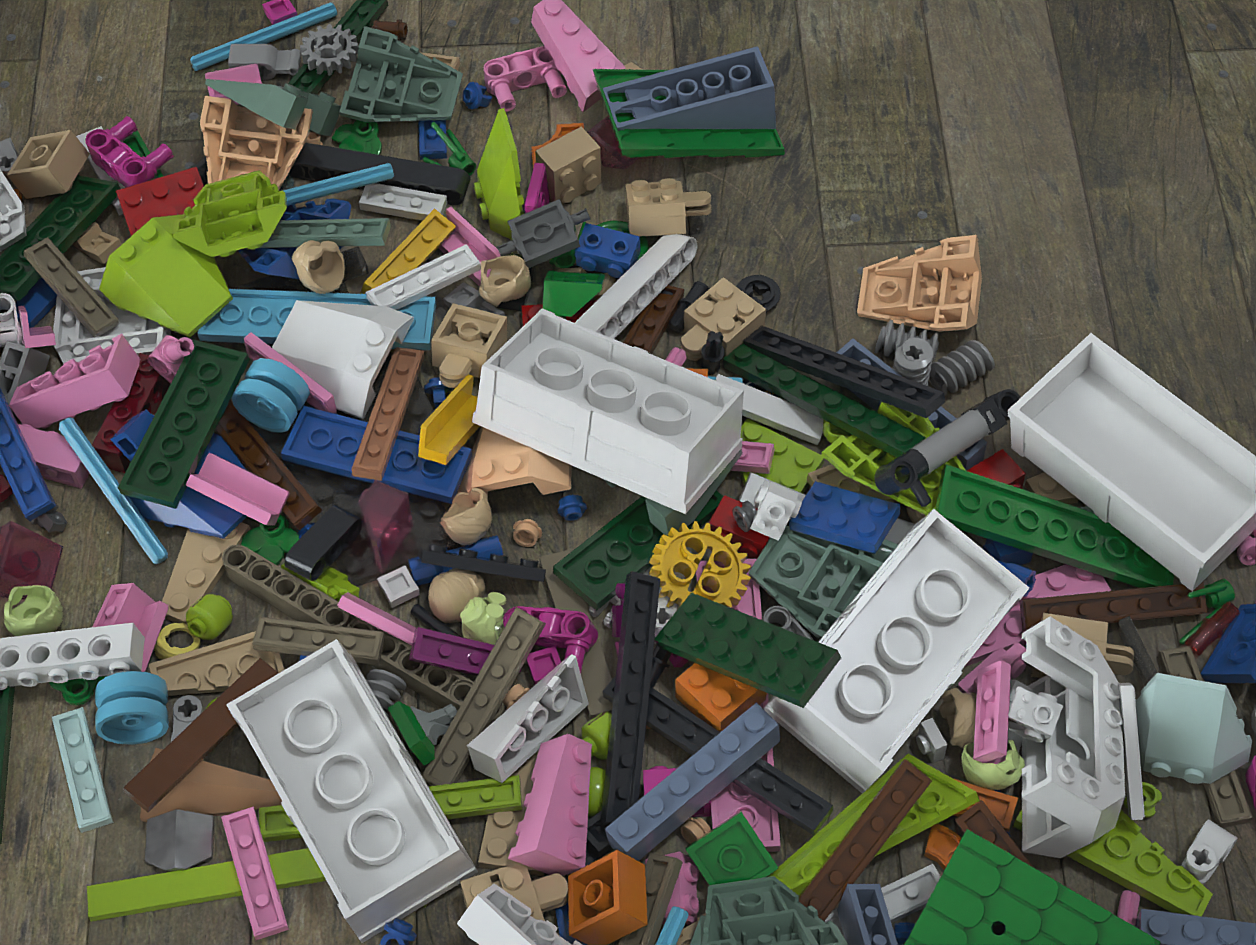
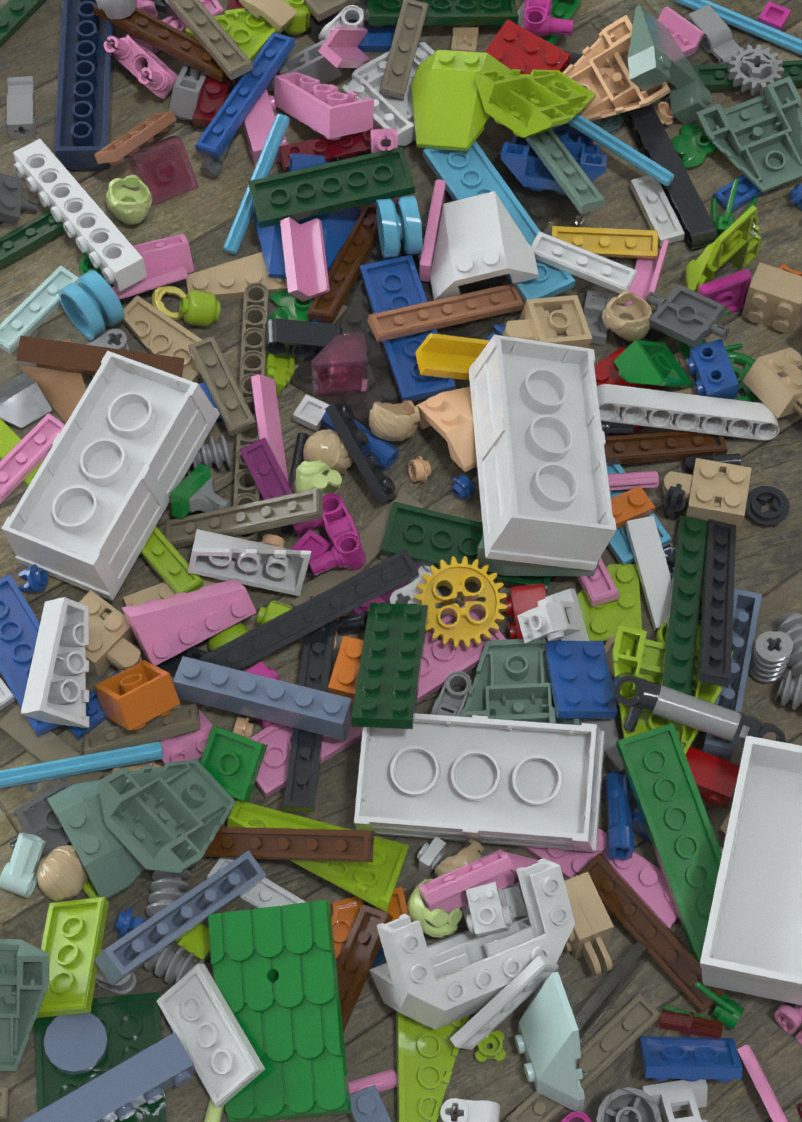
camera: 55 degrees right, 5 degrees up
(319, 266) = (534, 186): tan hair -> none
(745, 515) = (528, 603): dark grey bush -> none

